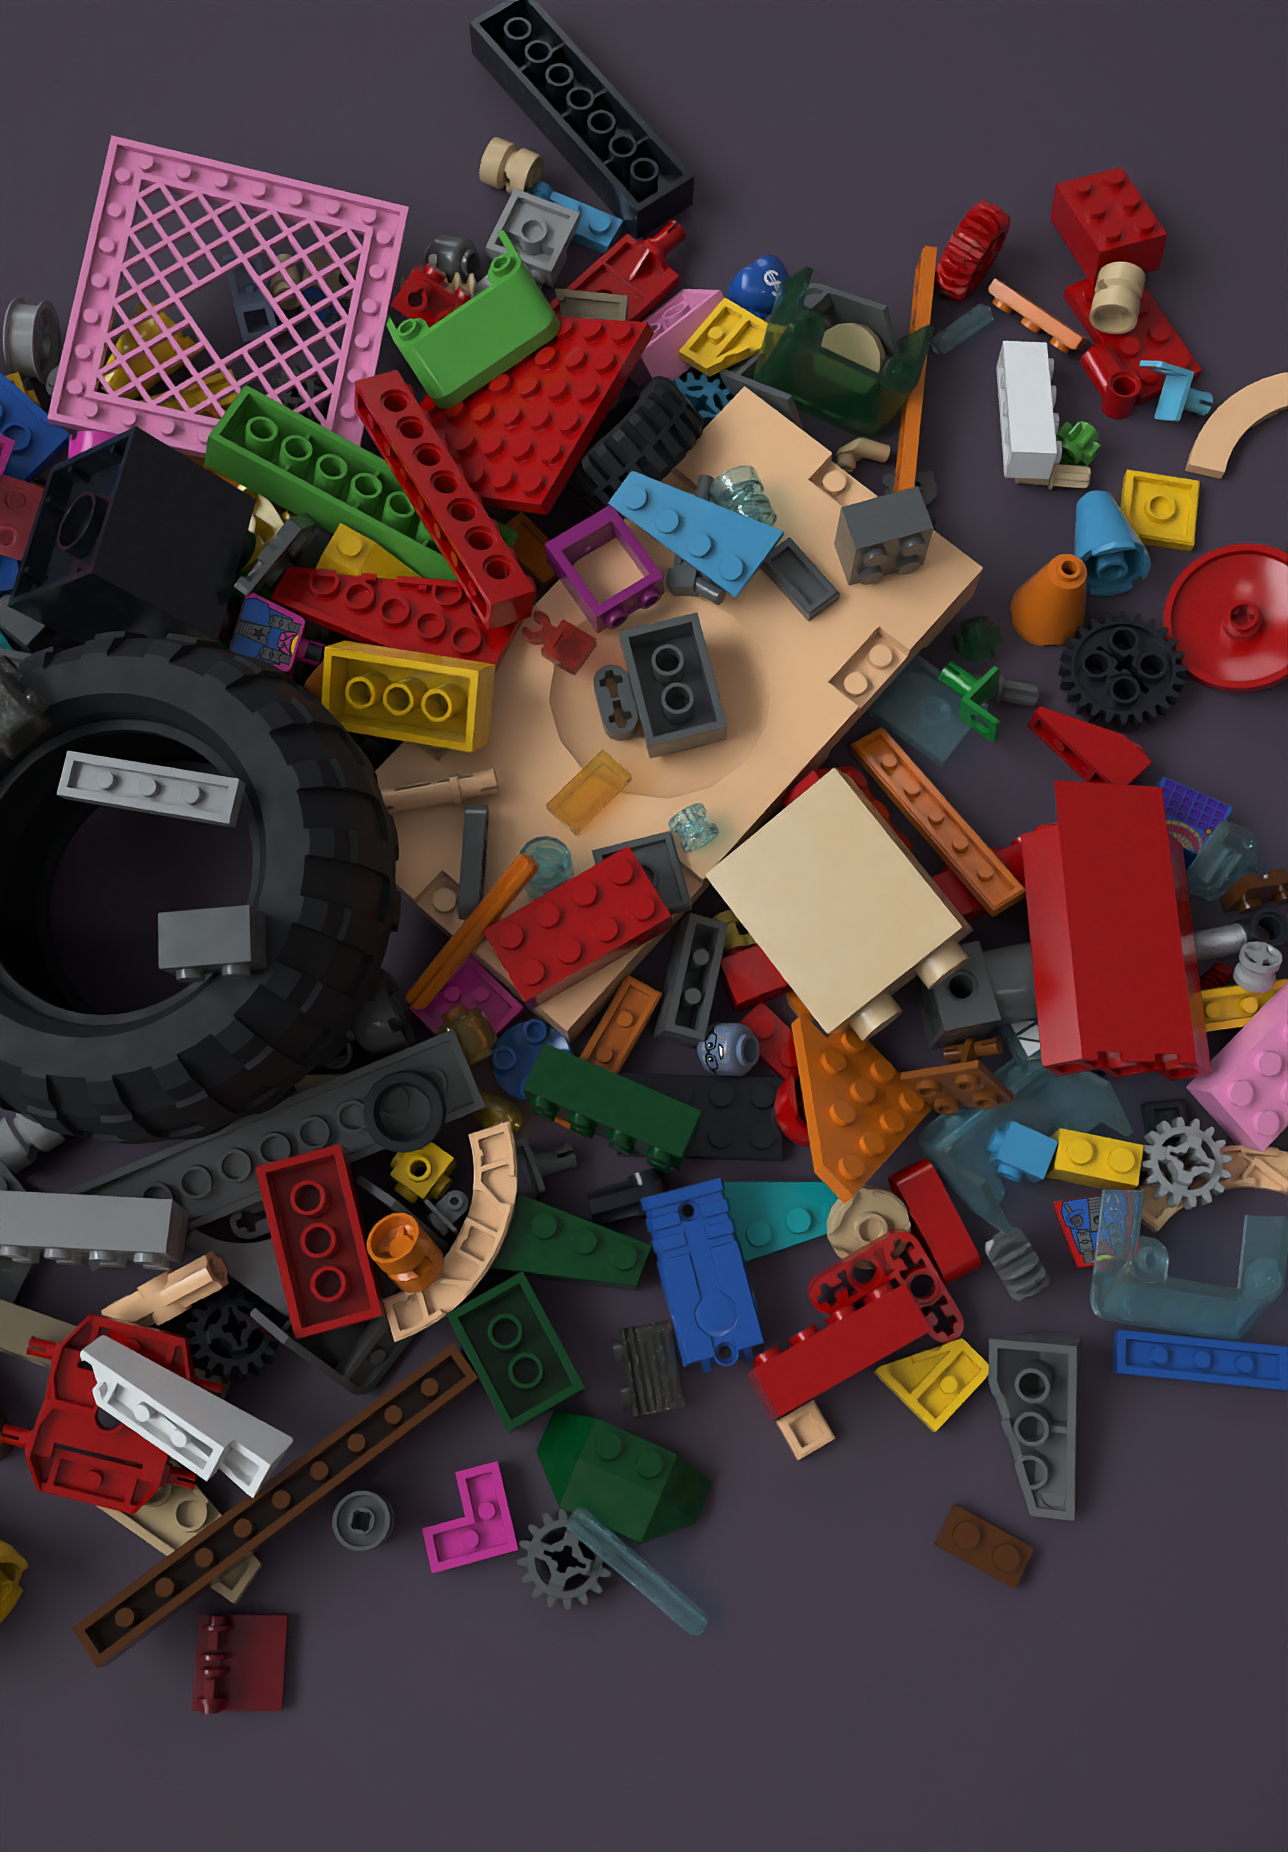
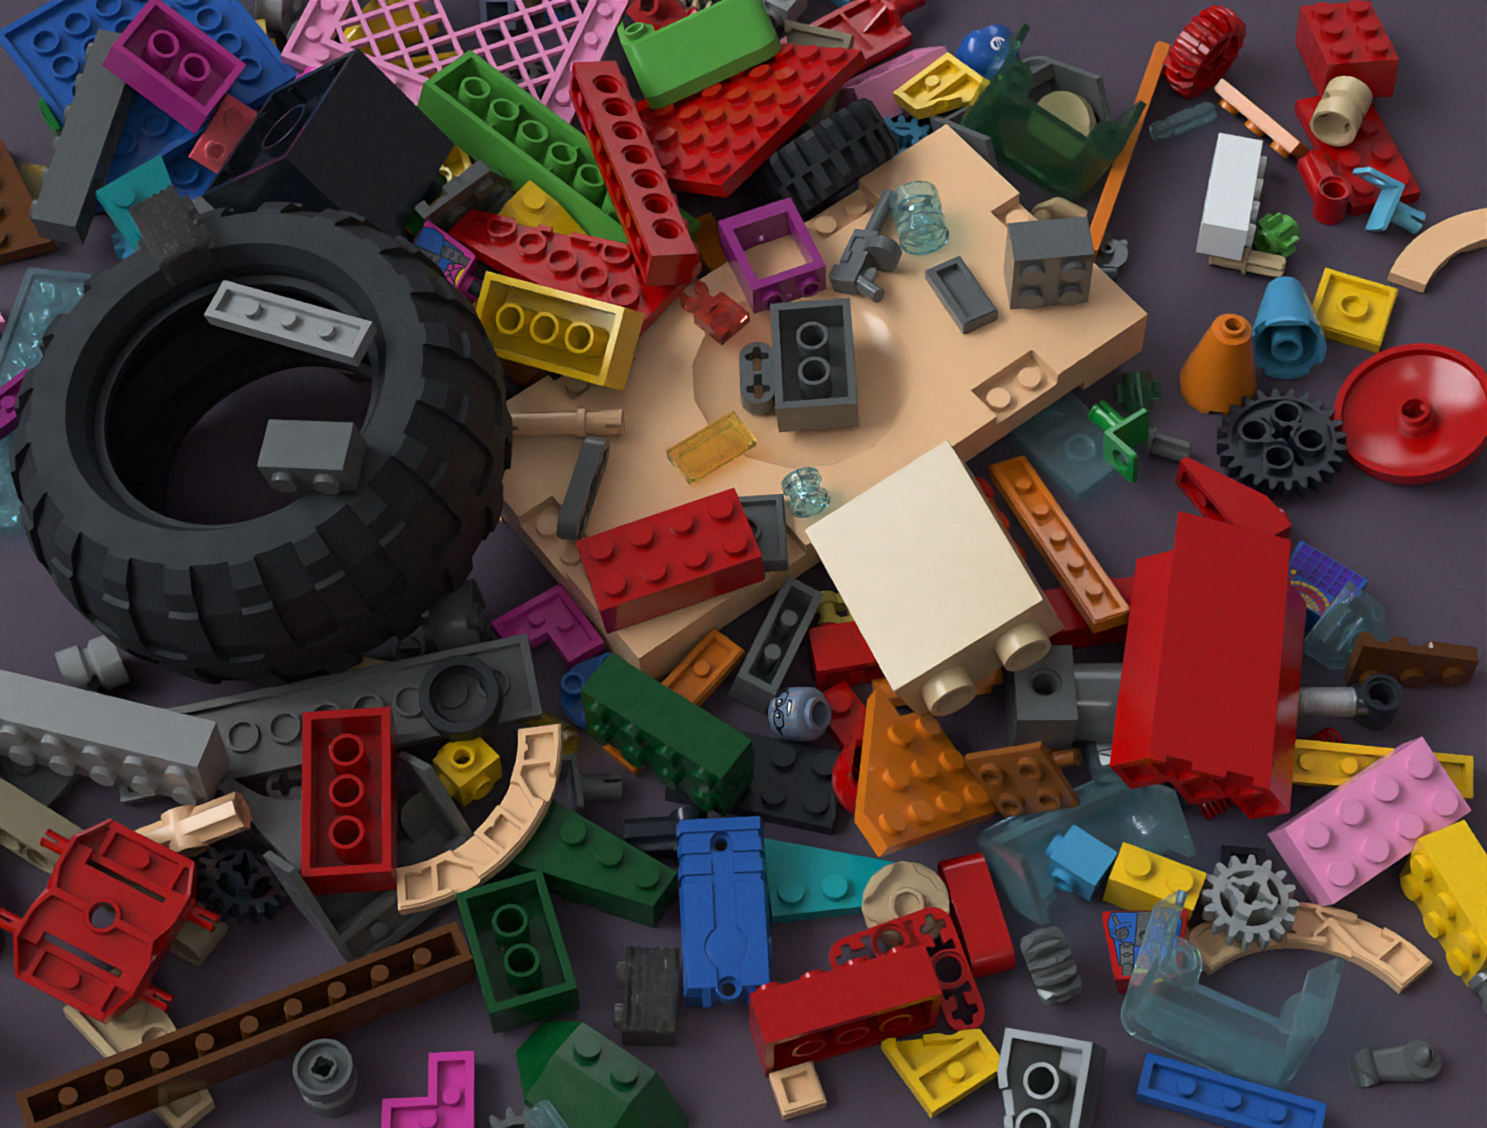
camera: 15 degrees right, 15 degrees down
(183, 1417) = (175, 927): white wedge -> none
(405, 1252) = (429, 822): orange wheel -> none
(448, 1214) = (479, 800): dark grey hinge -> none
(471, 931) = (564, 548): orange axle -> none
(472, 1031) = (547, 650): clear yellow head -> none
(553, 862) = (649, 493): clear light blue wheel -> none
(703, 534) = (871, 233): dark azure wing -> none
(1257, 966) = (1361, 726): light grey wheel -> none

